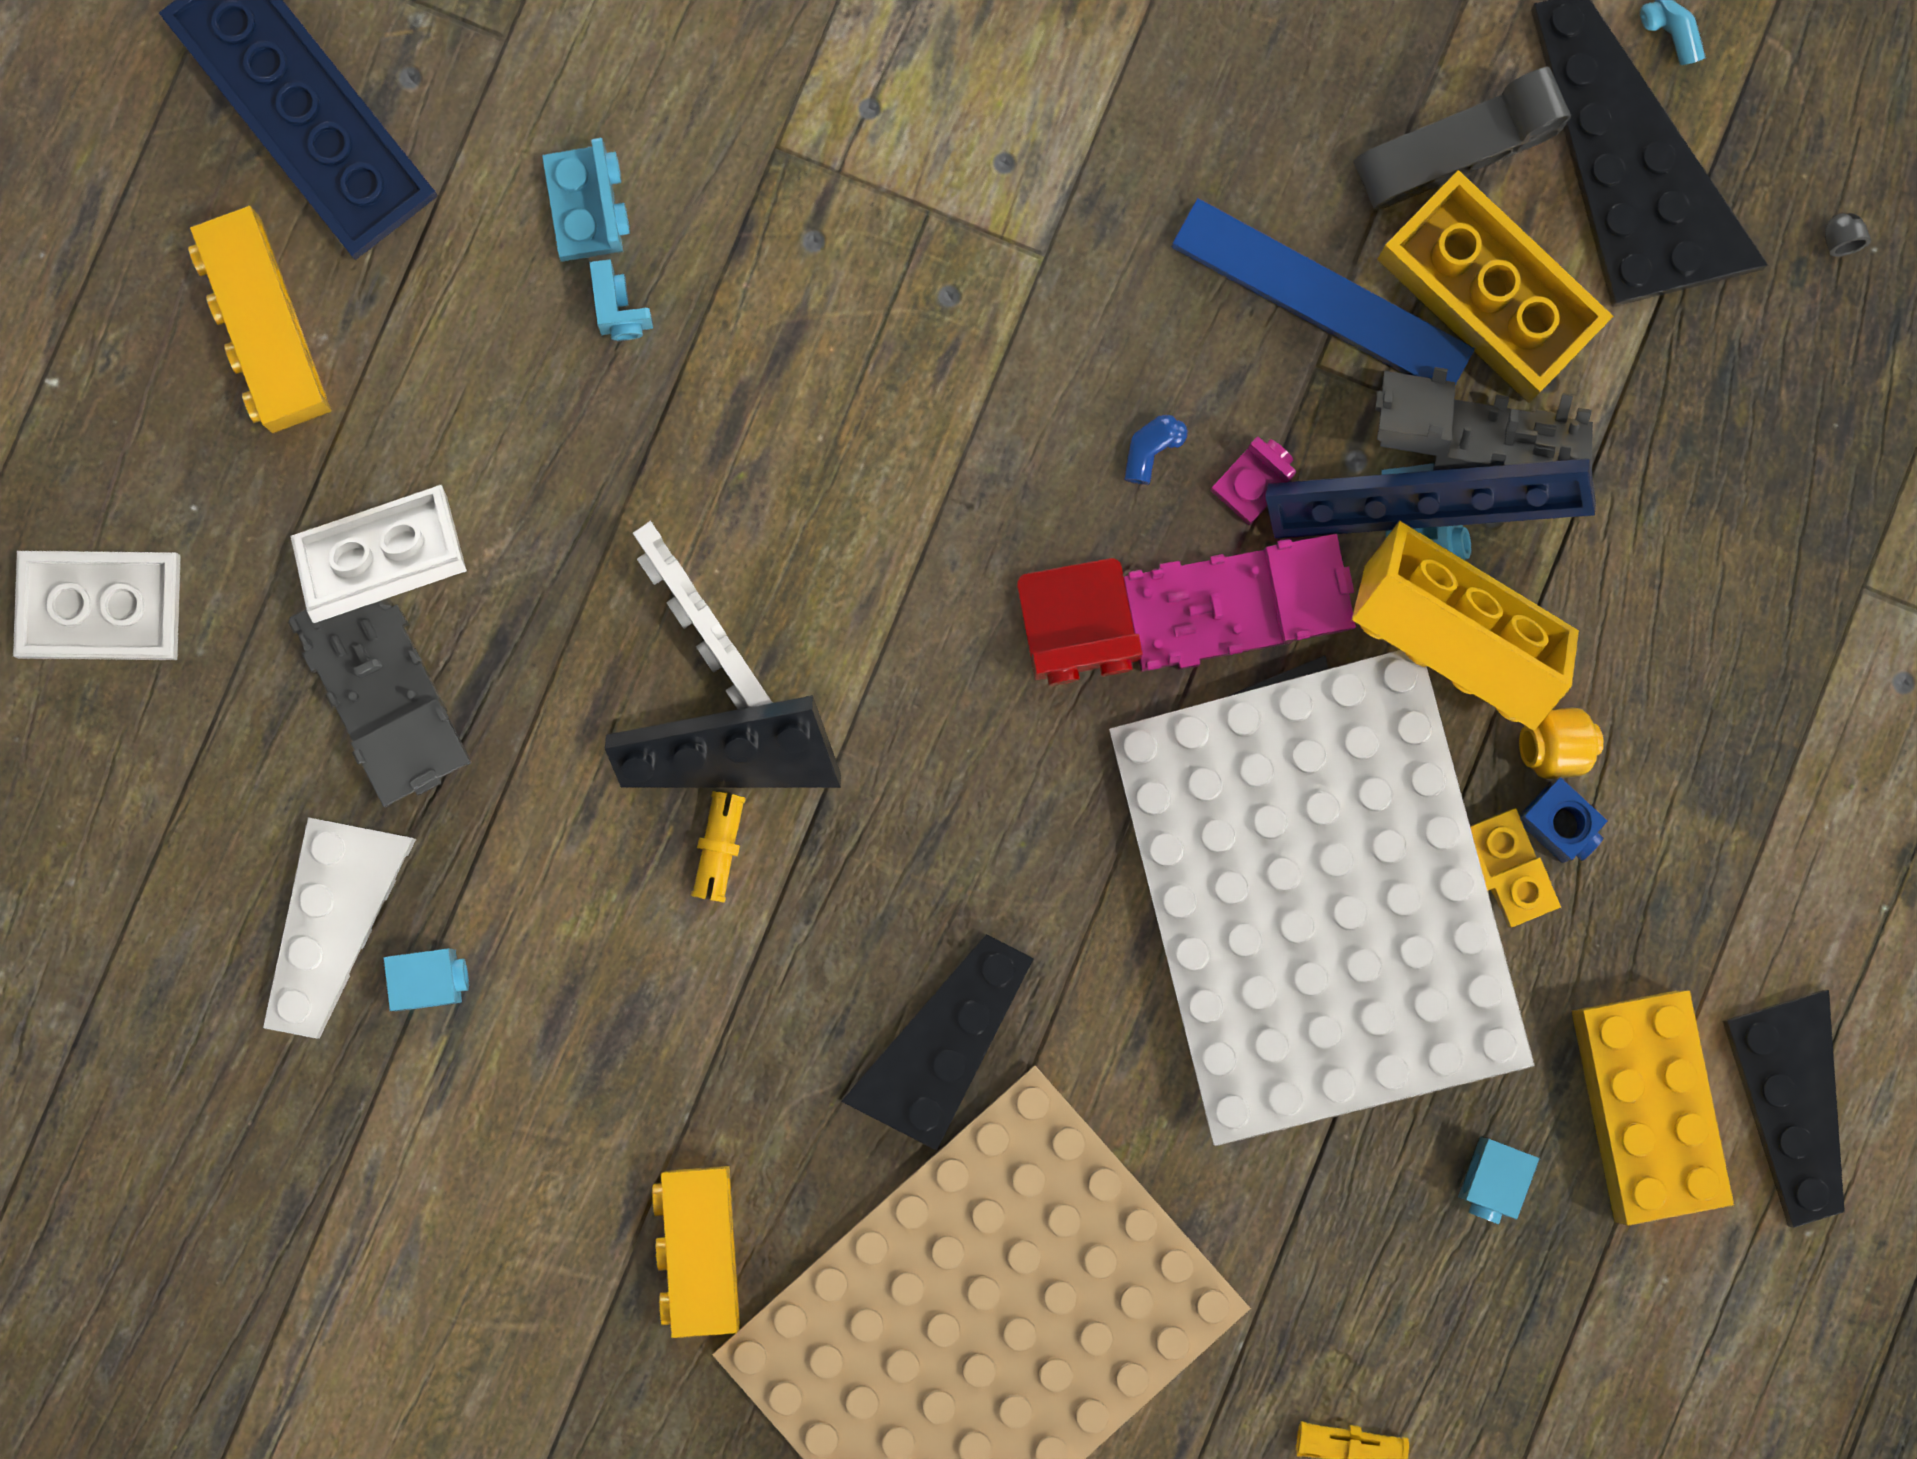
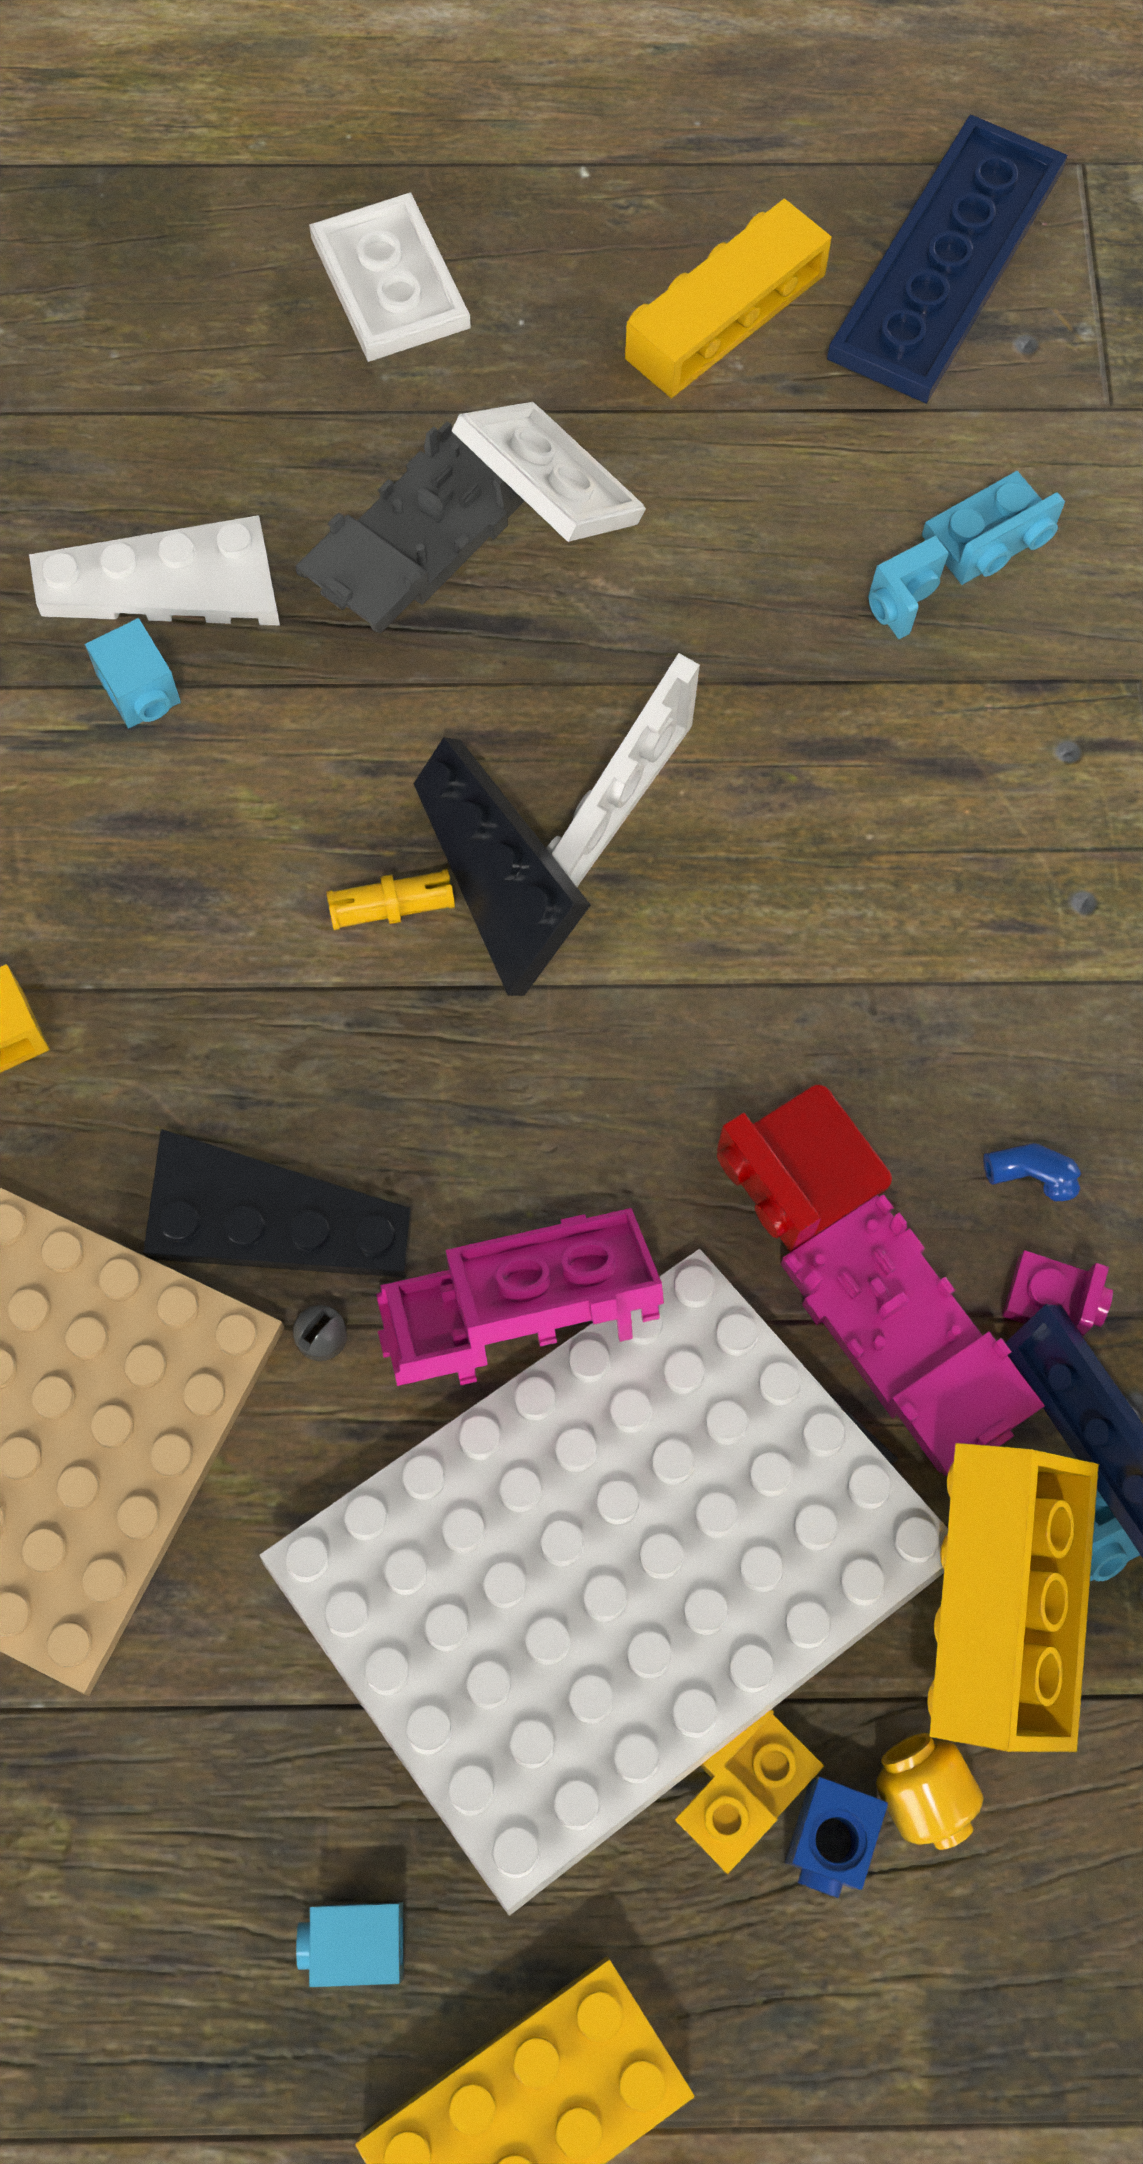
camera: 70 degrees right, 15 degrees down
(1041, 1044) = (329, 1340): none -> dark grey hinge
(1096, 881) = (517, 1289): none -> dark pink piece

